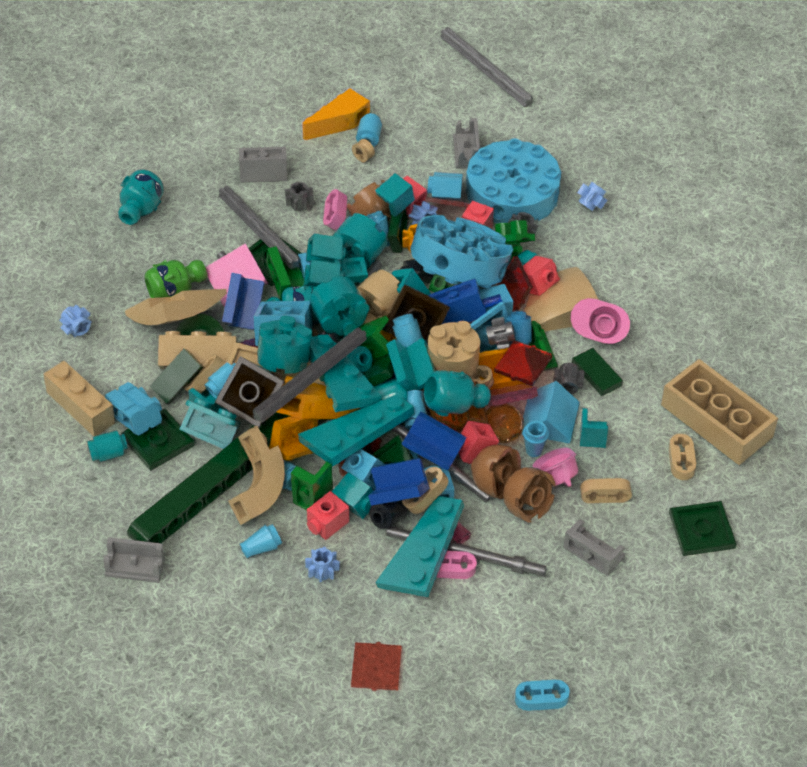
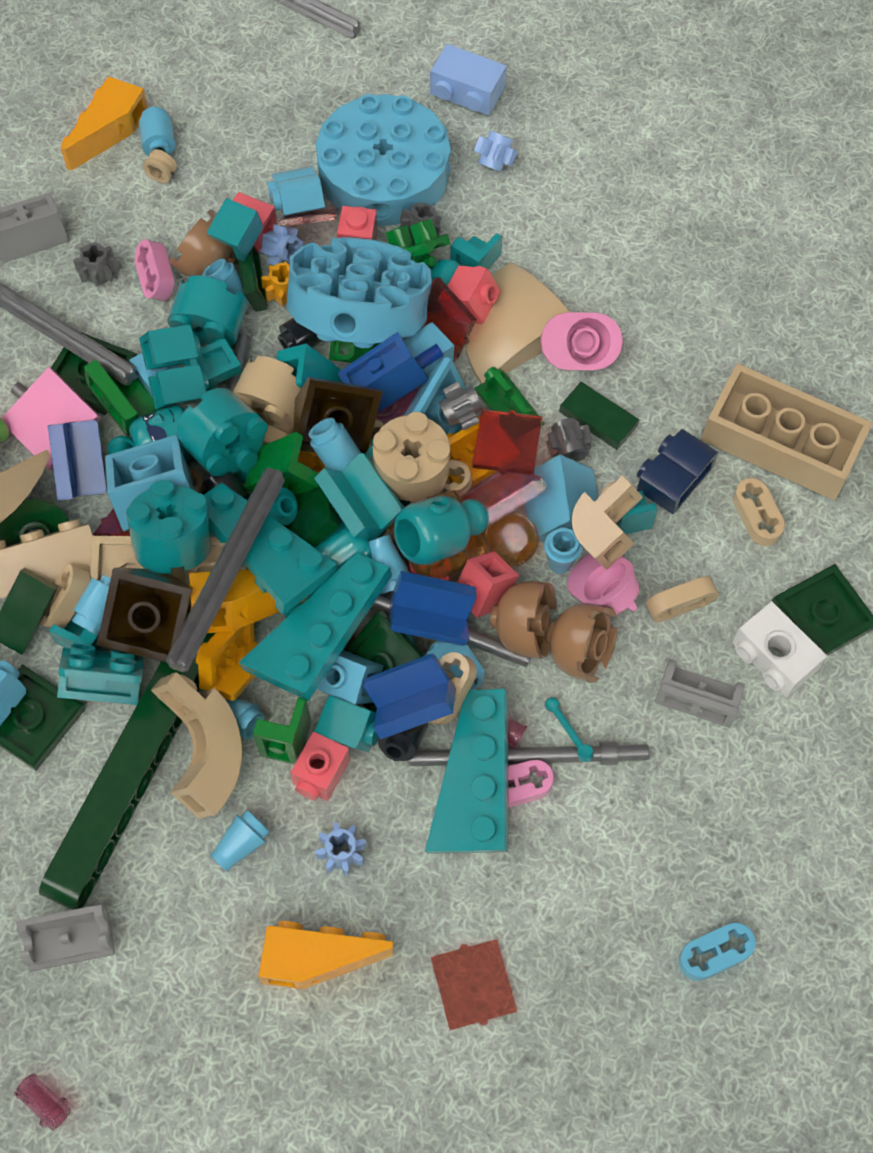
camera: 20 degrees left, 15 degrees up
(88, 646) = (43, 1102): none -> clear pink pin
(281, 617) = (307, 957): none -> light orange slope
(465, 143) = (298, 117): light grey hinge -> none
(501, 555) = (584, 751): none -> teal hinge
(521, 326) = (483, 382): dark azure brick -> none
(559, 255) = (476, 251): none -> teal panel
(563, 422) = (596, 521): none -> tan brick
(591, 148) = (467, 79): none -> light blue brick
(635, 416) = (676, 470): none -> dark blue brick
(655, 524) = (774, 629): none -> white brick

